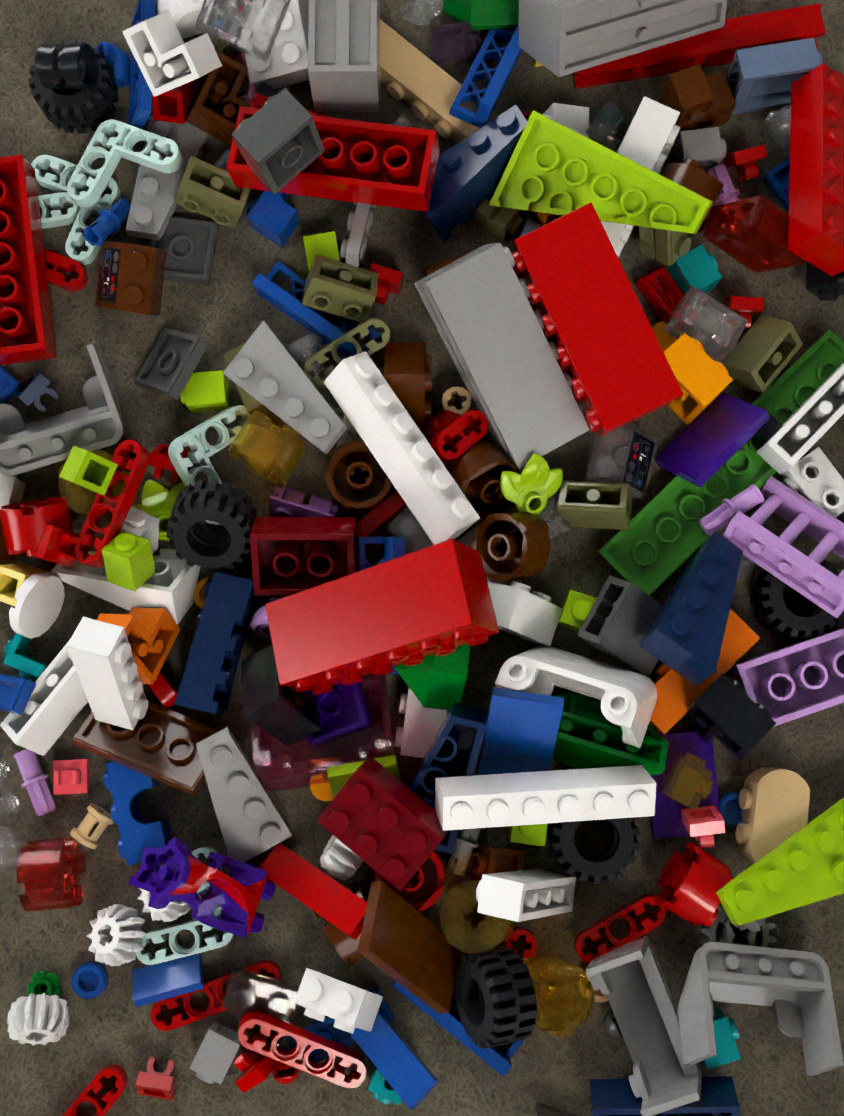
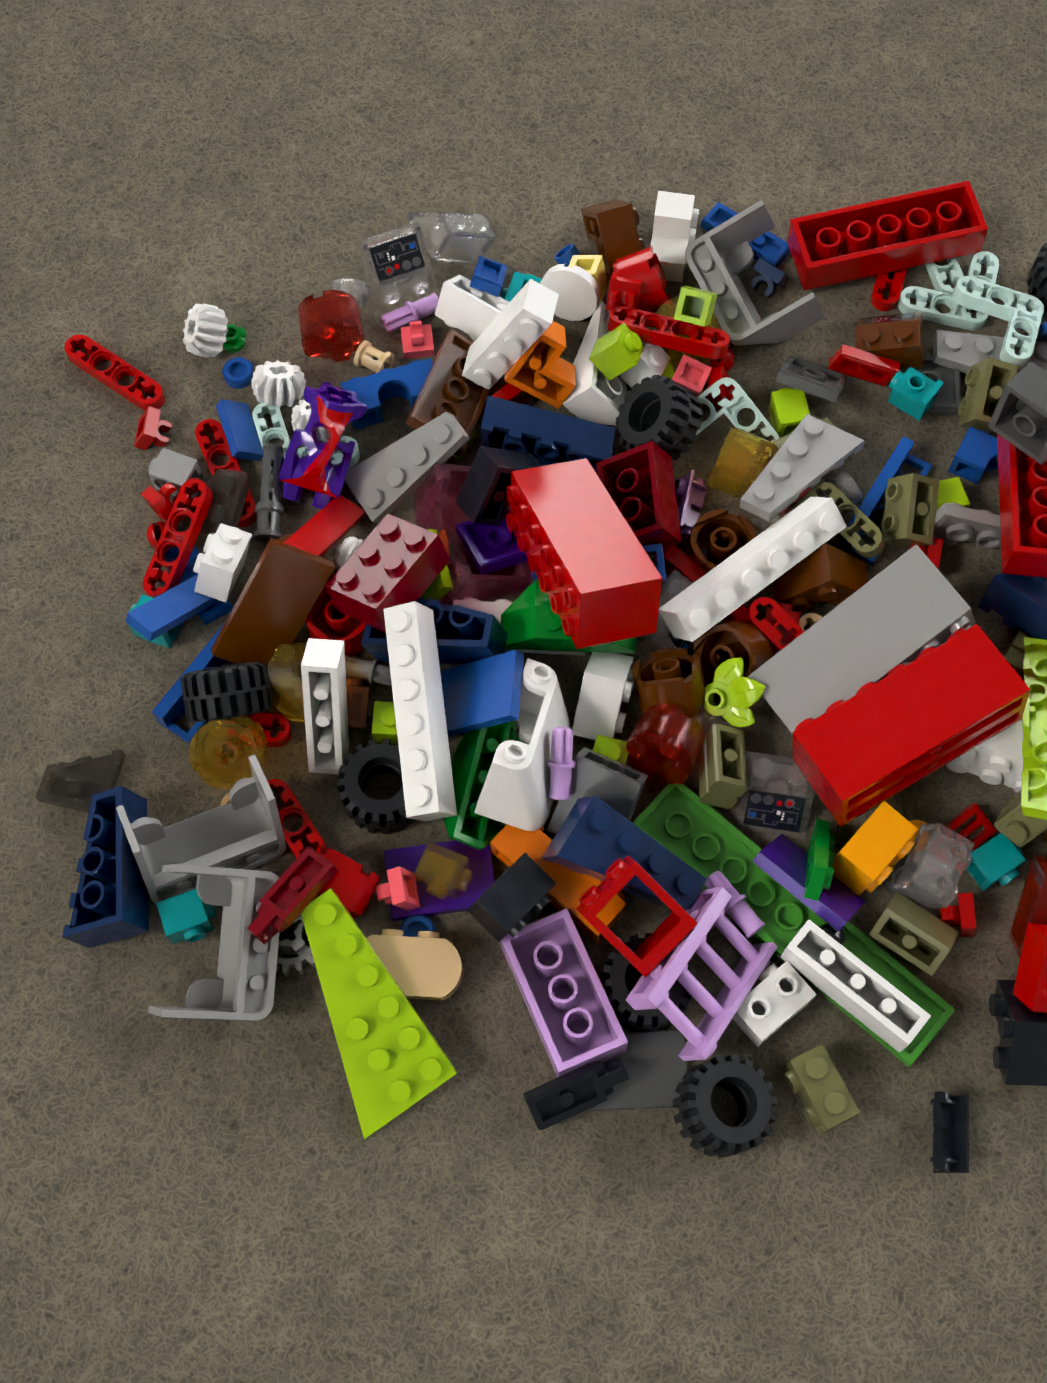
camera: 85 degrees right, 15 degrees down
(107, 223) = (940, 314): blue axle -> none
(158, 486) = (691, 374): none -> coral tile
(161, 309) = (864, 365): none -> red tile
(210, 266) = (913, 392): none -> teal brick
(210, 945) = (269, 509): none -> dark grey pin
(575, 557) = (665, 744): none -> clear red brick
(608, 659) = (561, 763): none -> lavender axle
(701, 427) = (819, 860): none -> green plate
(725, 932) = (291, 894): none -> dark red hinge
(783, 582) = (661, 941): none -> red window

